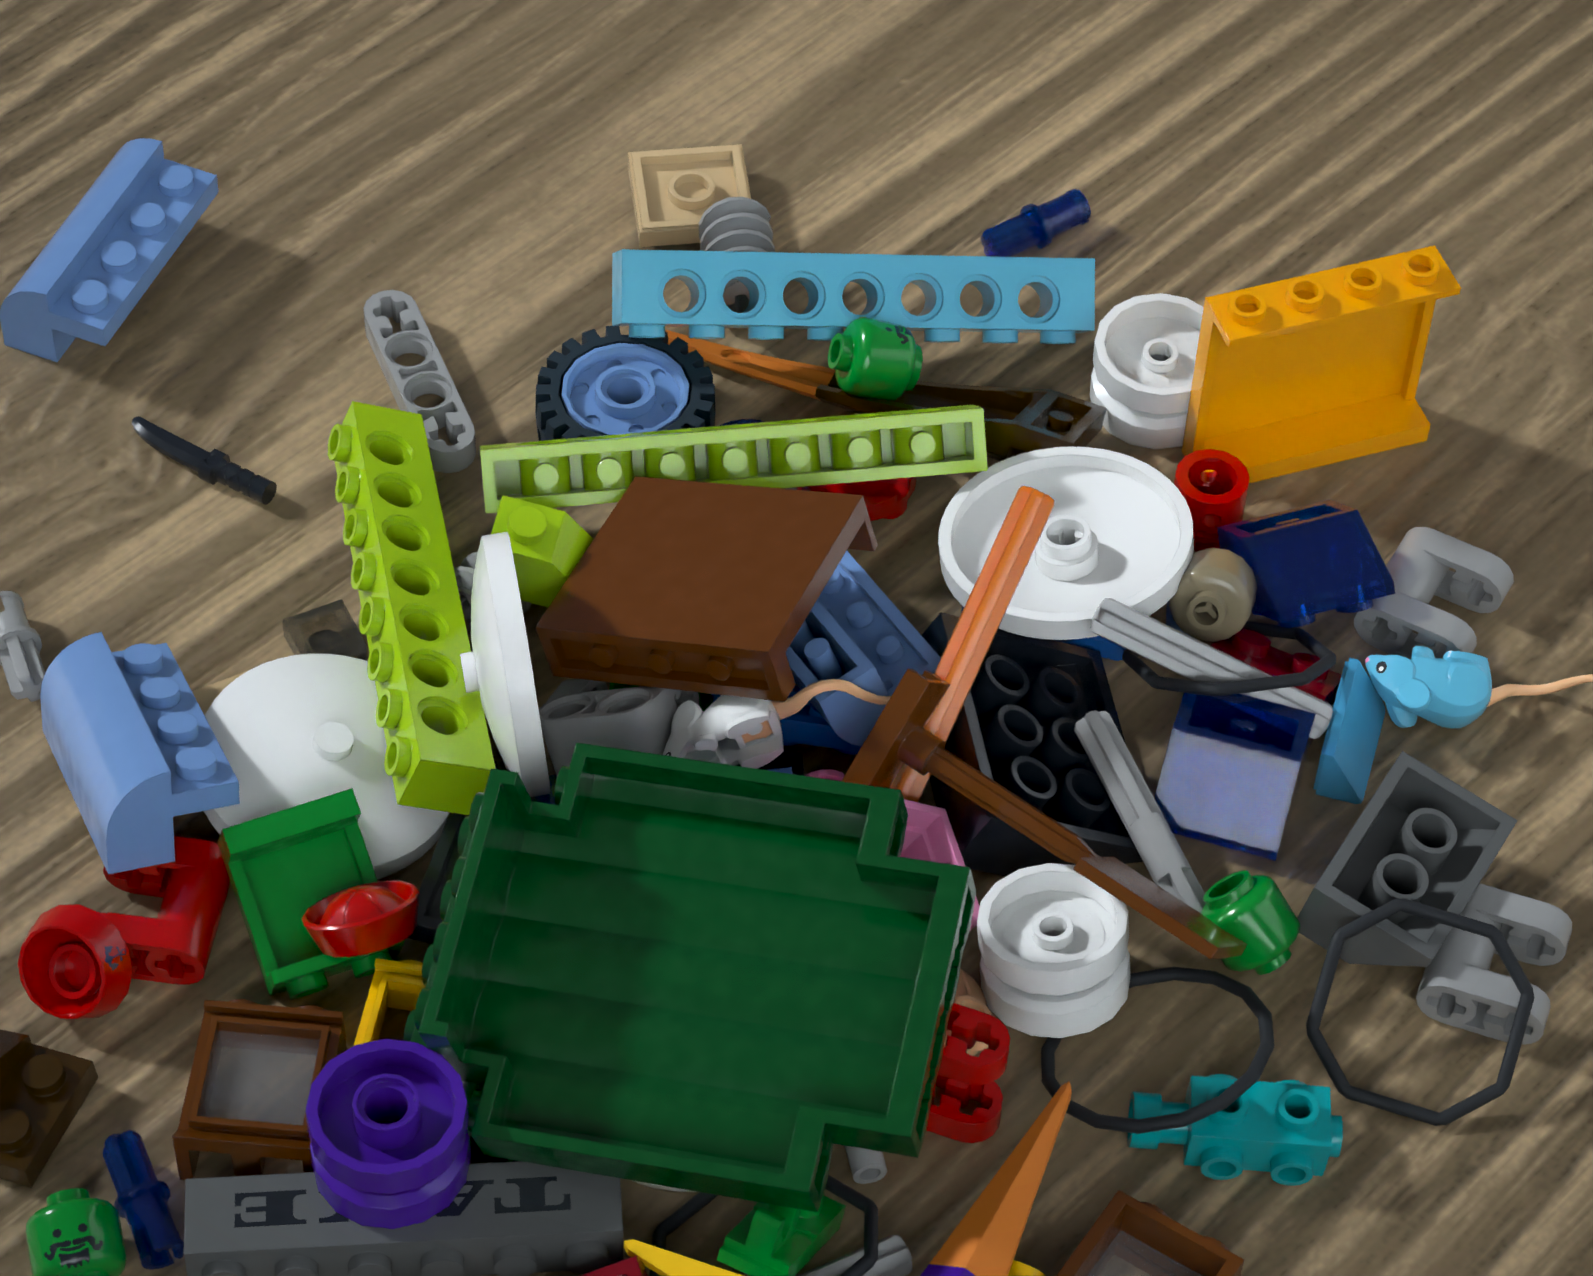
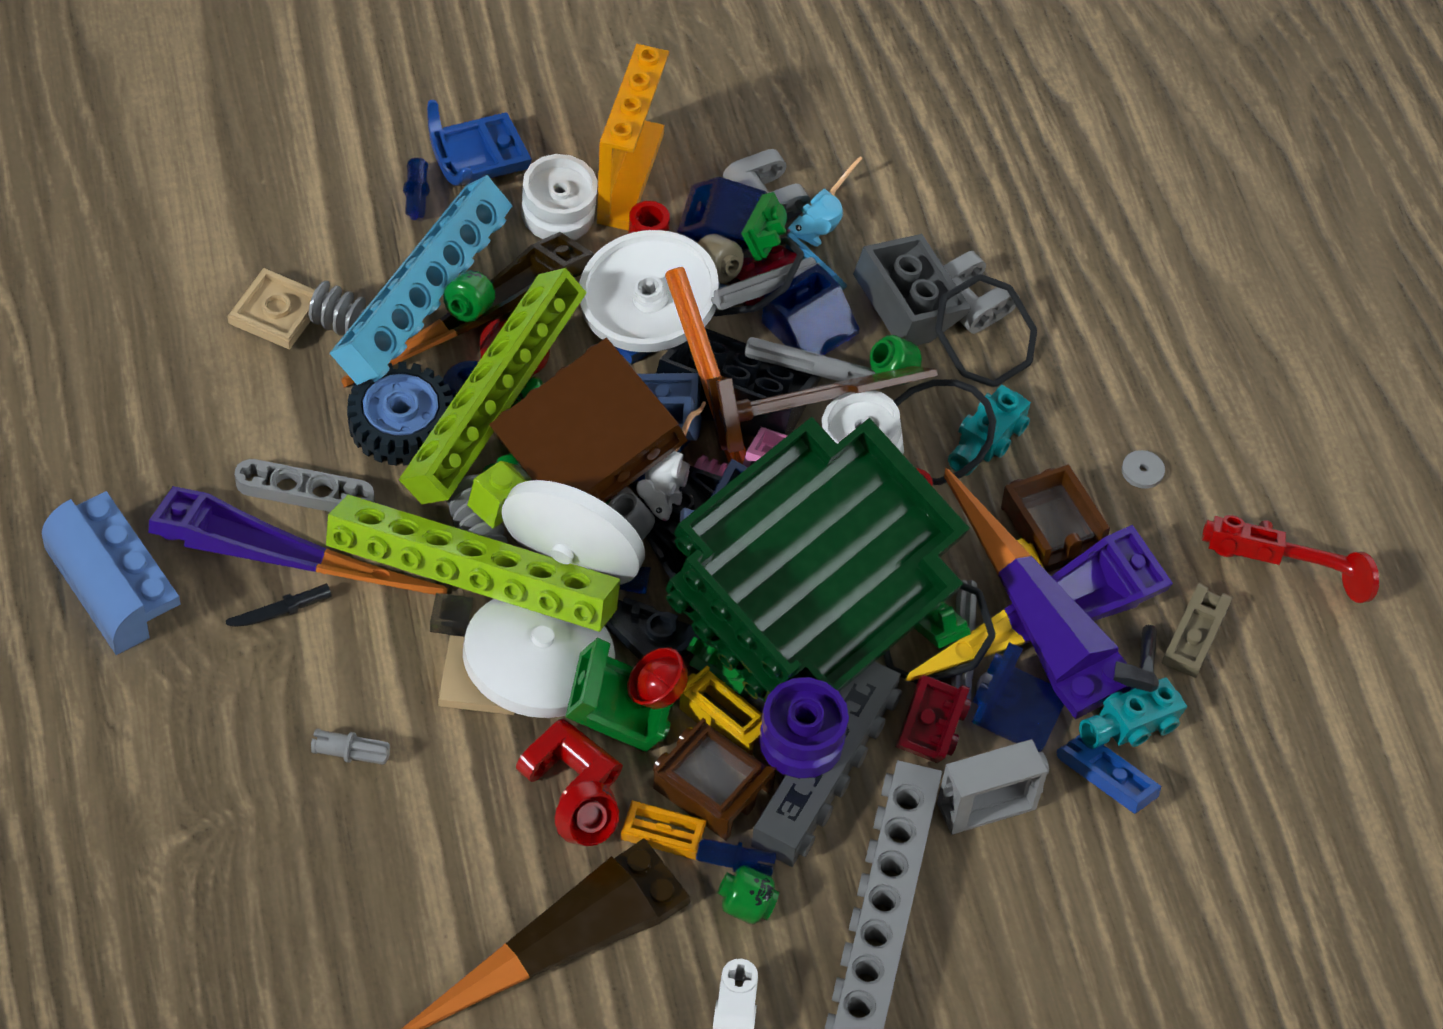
camera: 60 degrees left, 5 degrees up
(132, 748) = (482, 722): medium blue brick -> none
(149, 1129) = (660, 835): none -> light orange tile
(271, 329) = (223, 529): none -> dark purple plate
(1167, 244) = (476, 147): none -> blue piece
(1323, 613) = (765, 226): none -> green plate

